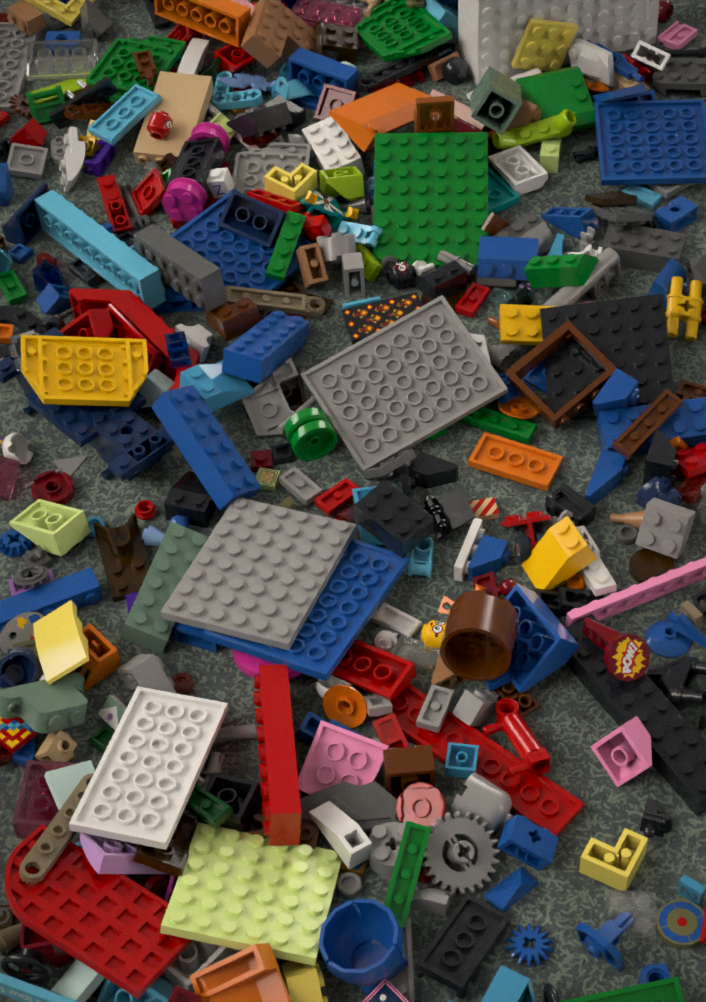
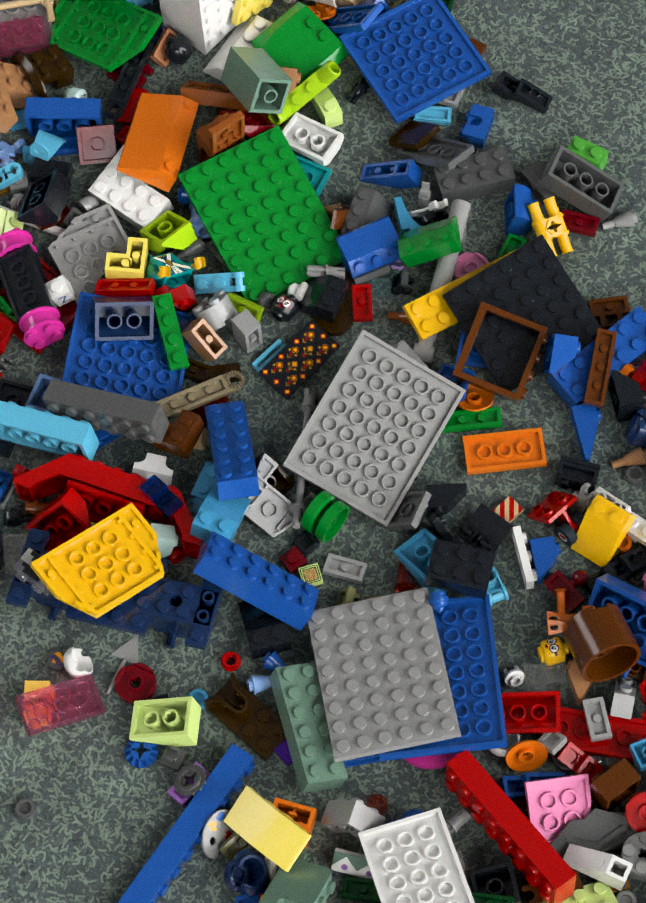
camera: 30 degrees left, 15 degrees up
(336, 497) = (382, 563): red plate -> none
(357, 538) = (438, 600): none -> blue plate
(396, 621) = (512, 654): white tile -> none

